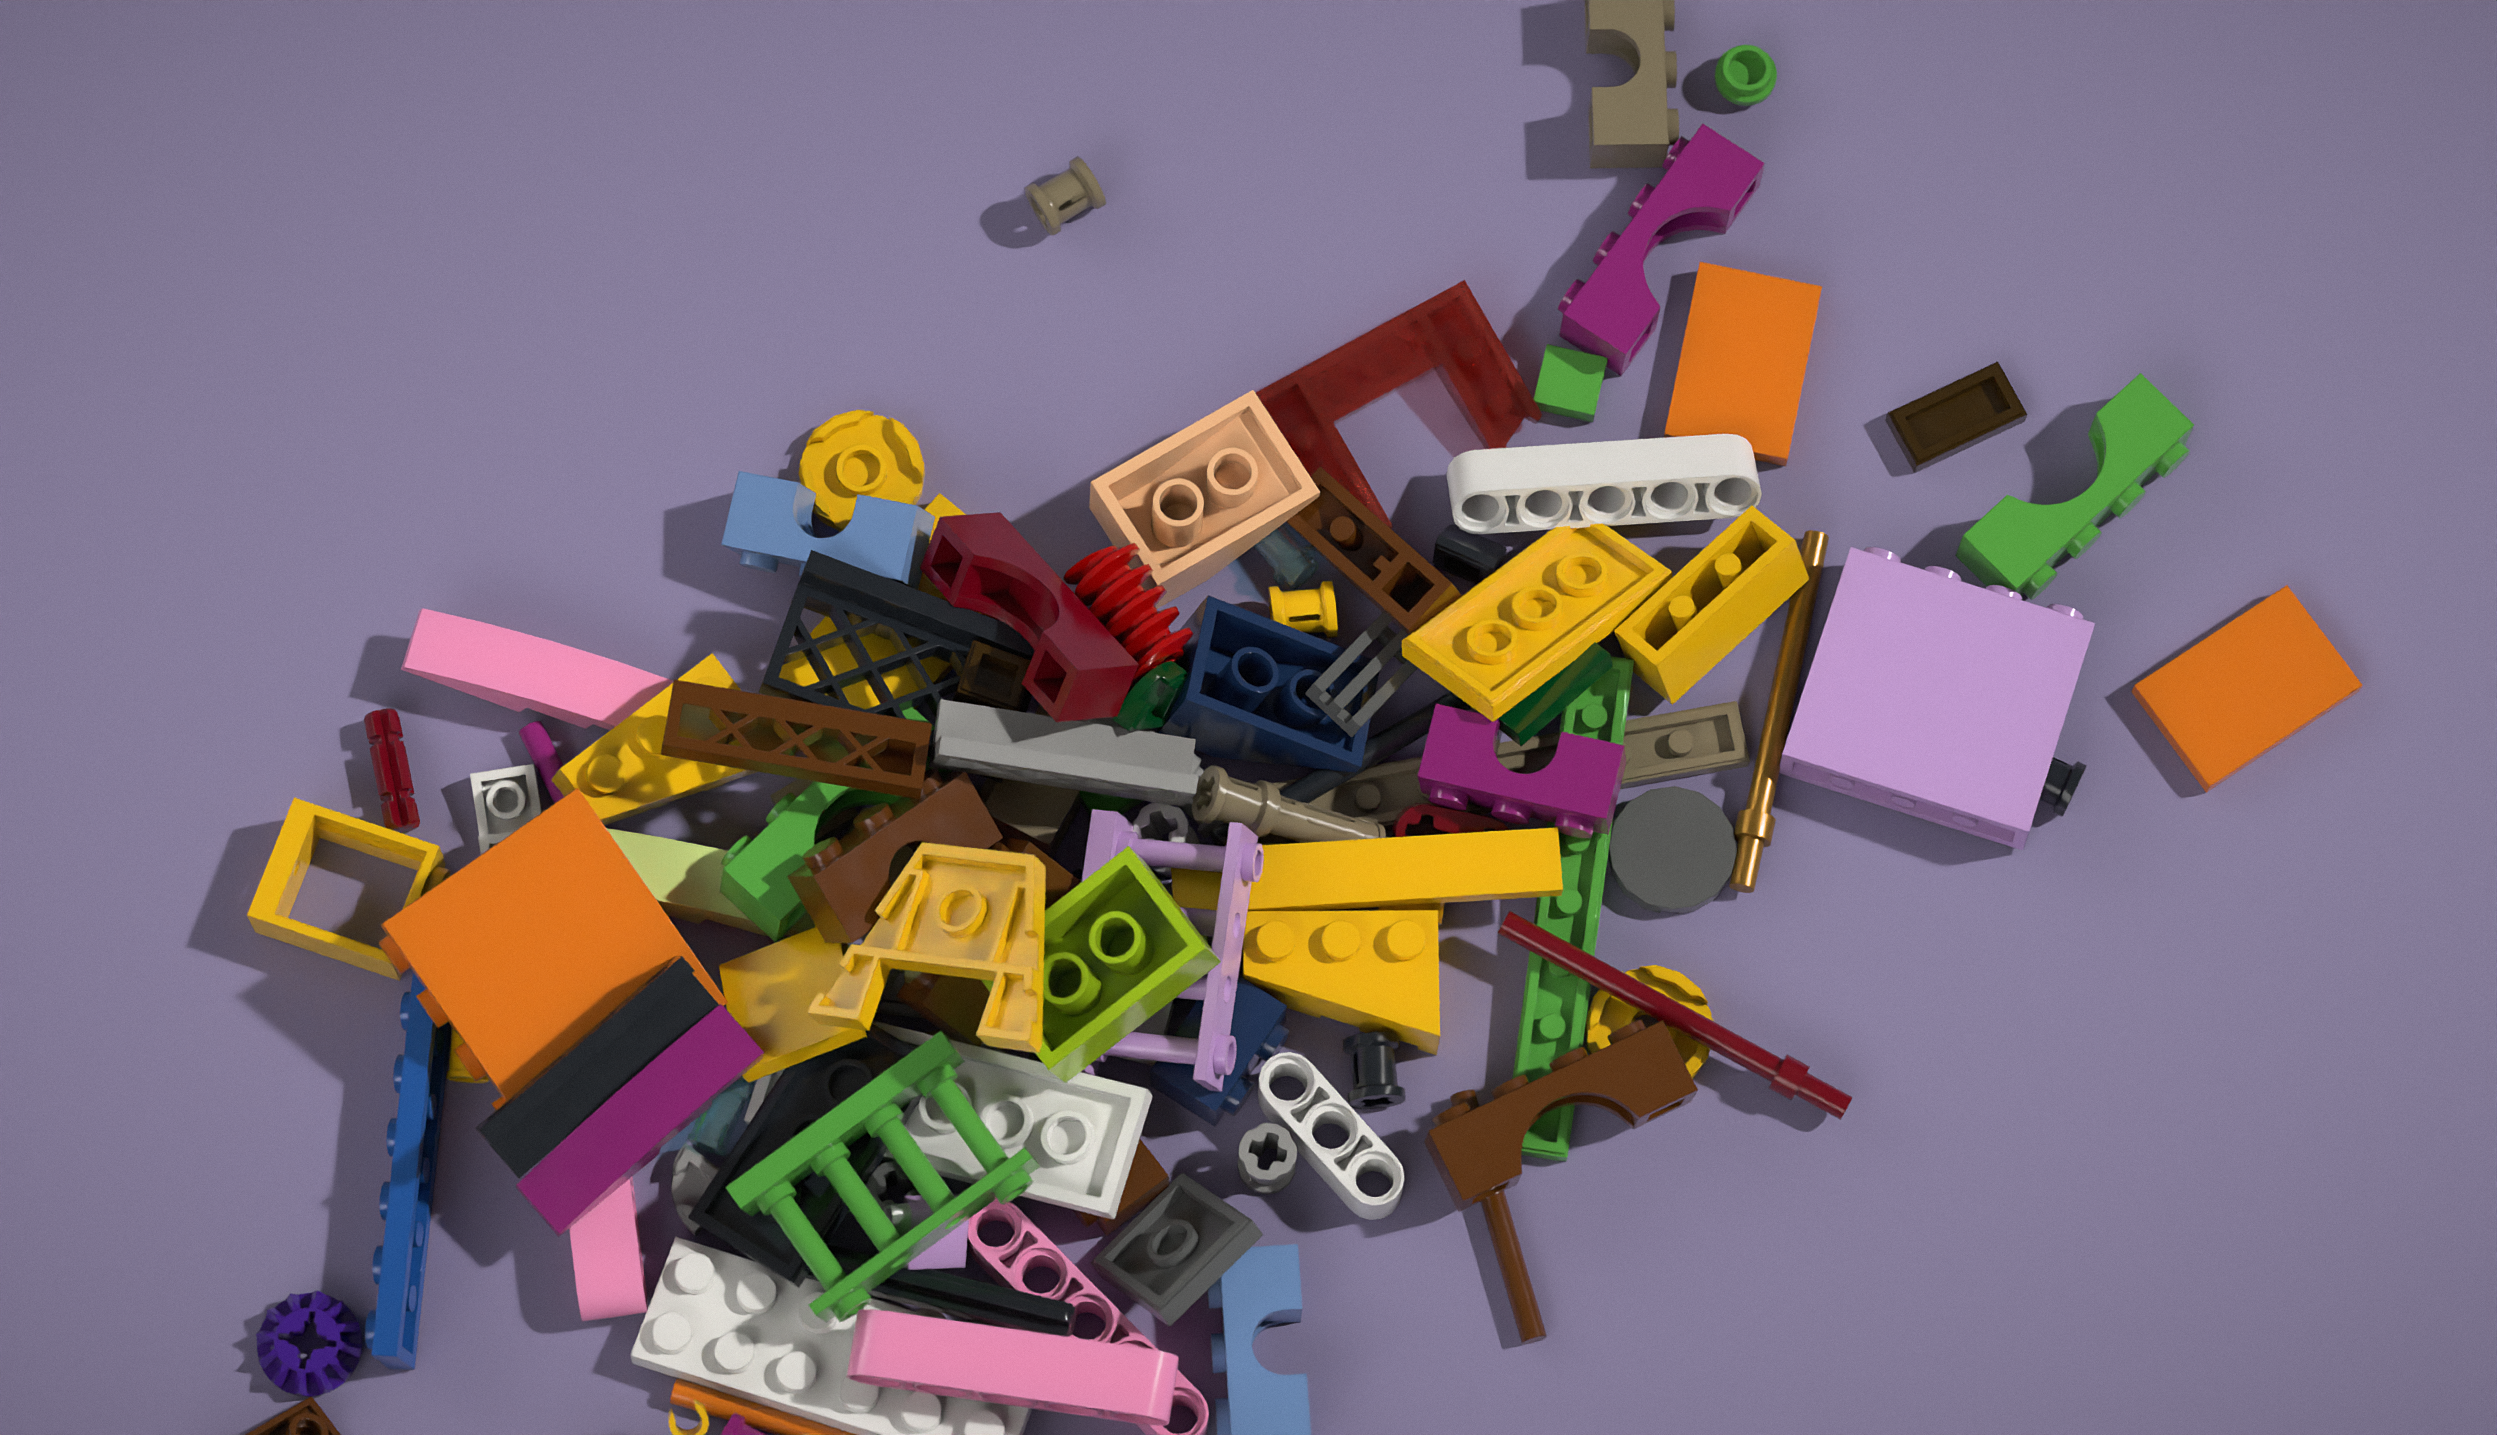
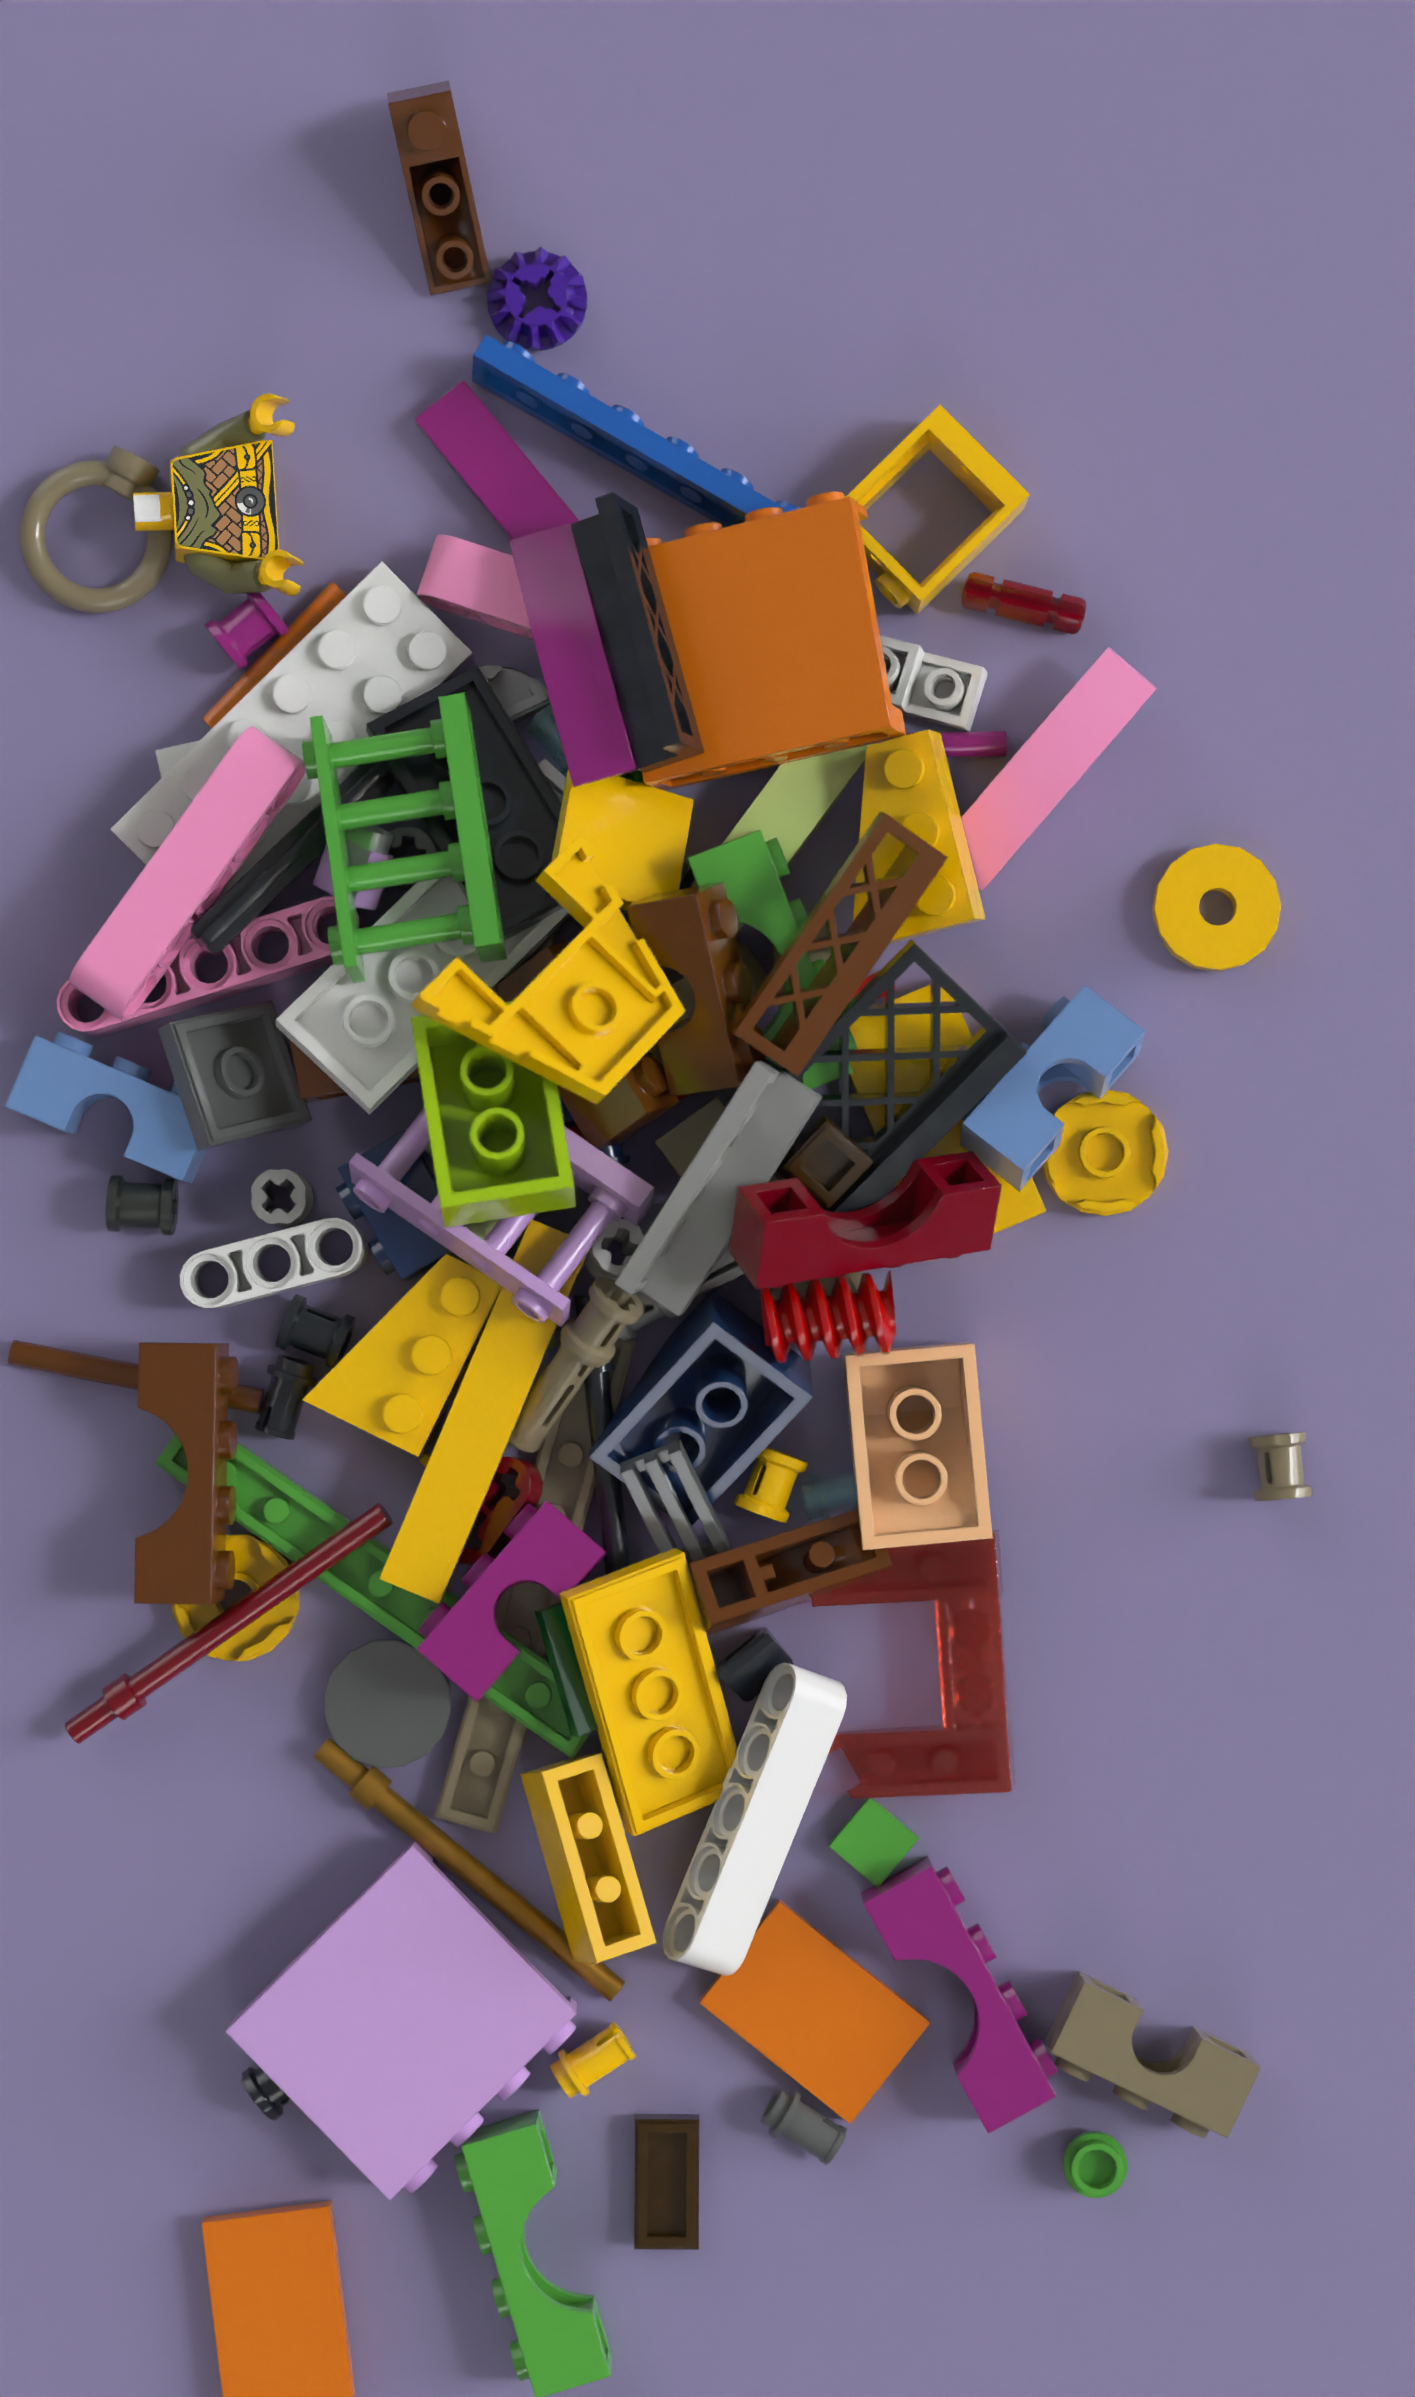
camera: 120 degrees right, 15 degrees up
(492, 1300) = (492, 464): none -> magenta tile
(585, 443) = (1243, 881): none -> yellow tile
(1152, 698) = (734, 1295): dark green tile -> none
(1338, 1282) = (142, 1204): none -> pearl dark grey bush
(1445, 1070) = (284, 1396): none -> black pin
(1844, 337) = (803, 2125): none -> dark grey pin
(1886, 524) = (592, 2060): none -> yellow pin

